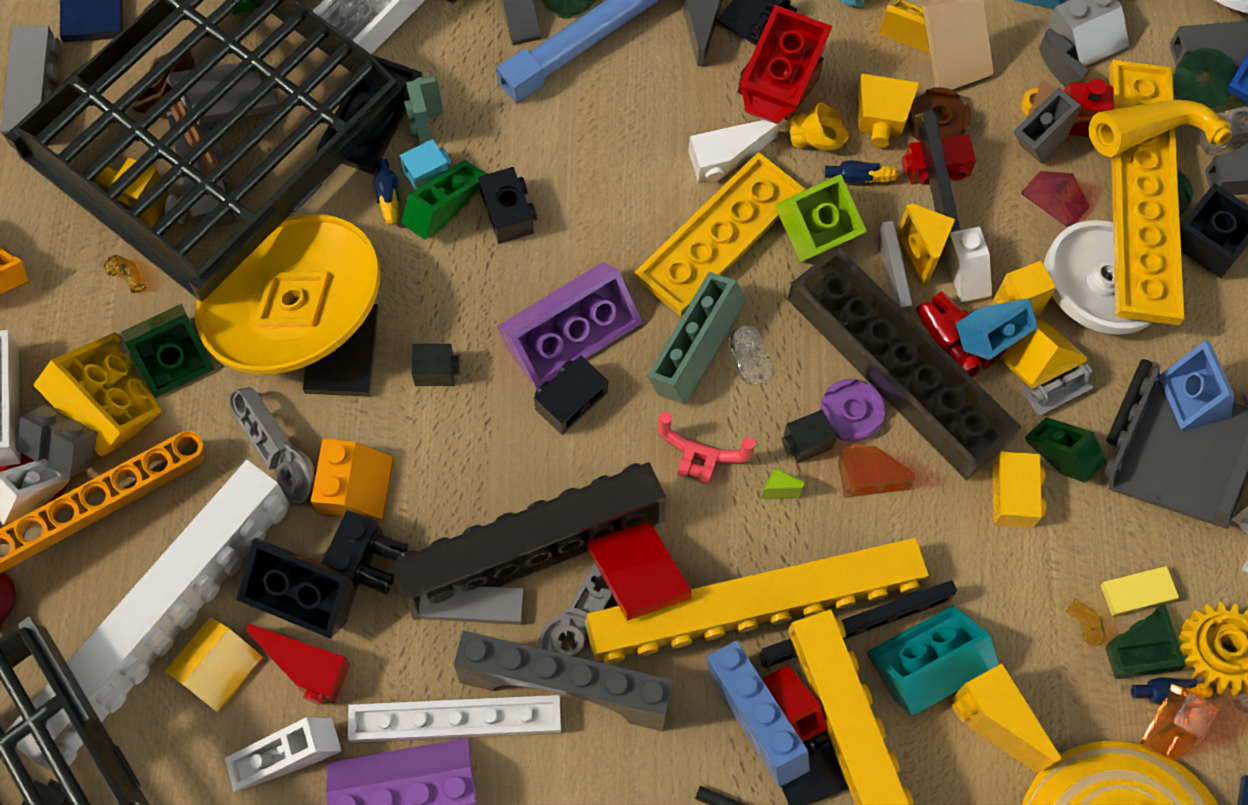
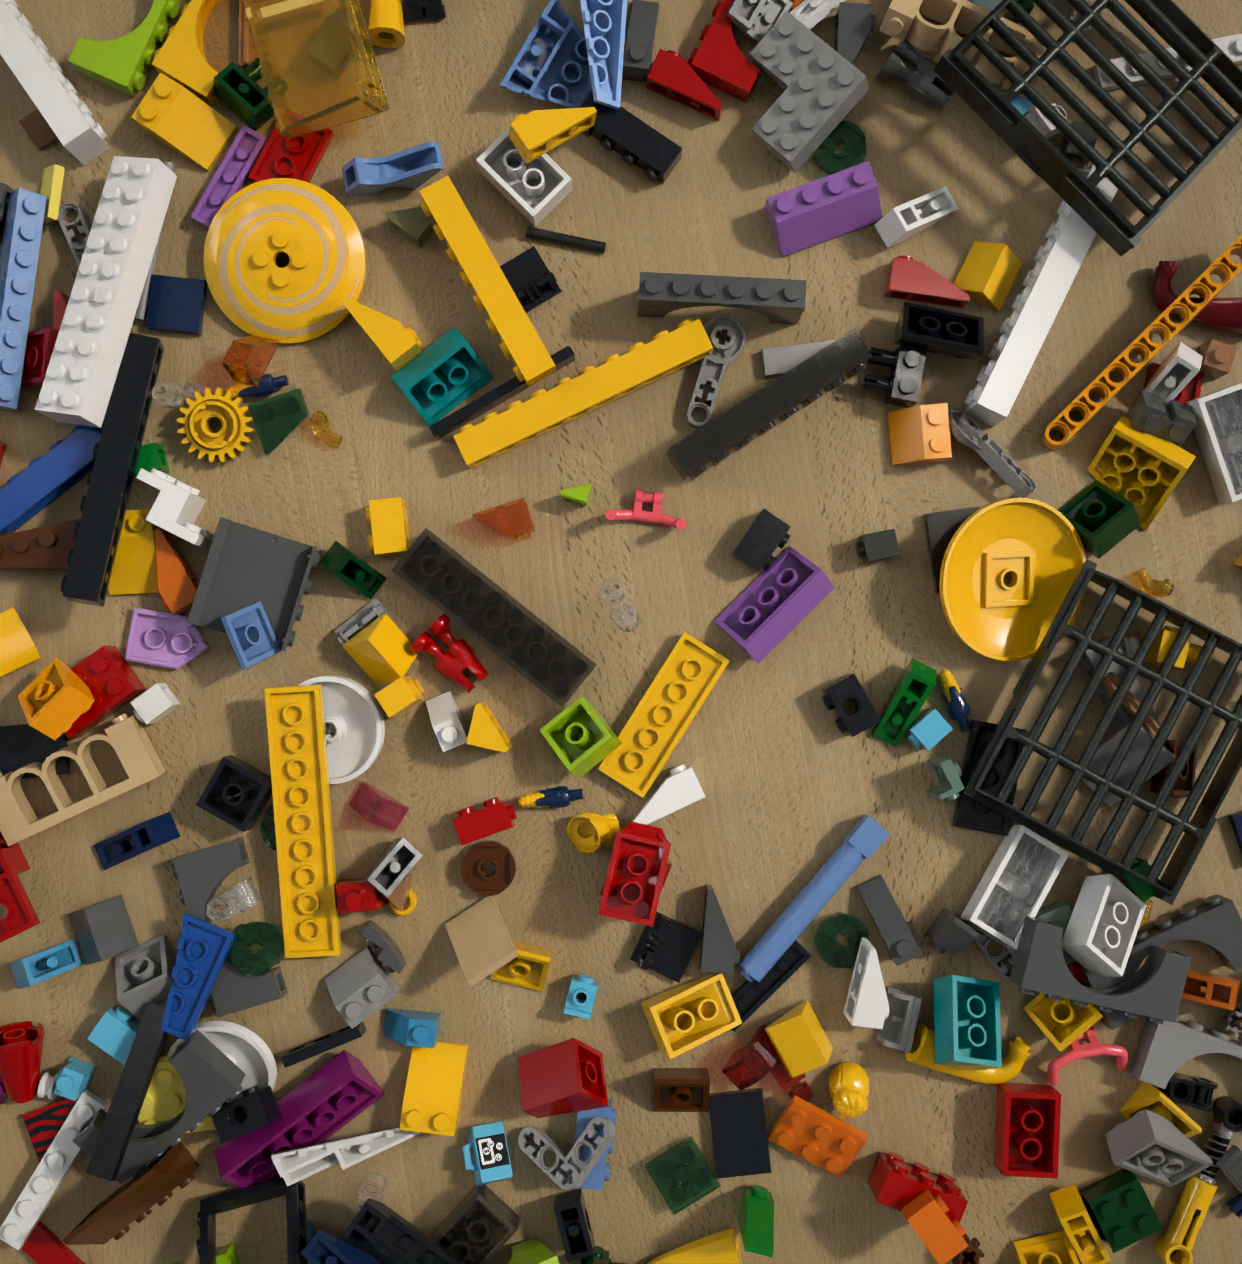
camera: 170 degrees right, 20 degrees up
(454, 718) = (809, 261): white plate -> none
(639, 570) = (679, 393): red tile -> none
(696, 338) = (667, 607): sand green brick -> none
(758, 714) = (570, 301): medium blue brick -> none
(796, 703) = (545, 314): red brick -> none
(808, 436) = (562, 540): pearl dark grey brick -> none
(853, 409) = (529, 575): medium lavender tile -> none
(883, 107) = (538, 865): yellow torso -> none
(894, 266) = (510, 705): light grey tile -> none
(936, 166) = (485, 796): black tile -> none
(996, 327) = (421, 652): dark azure slope -> none
(1125, 127) = (322, 872): yellow animal -> none
(1130, 398) = (303, 625): pearl dark grey bar -> none
(1139, 591) = (285, 463): light yellow tile -> none

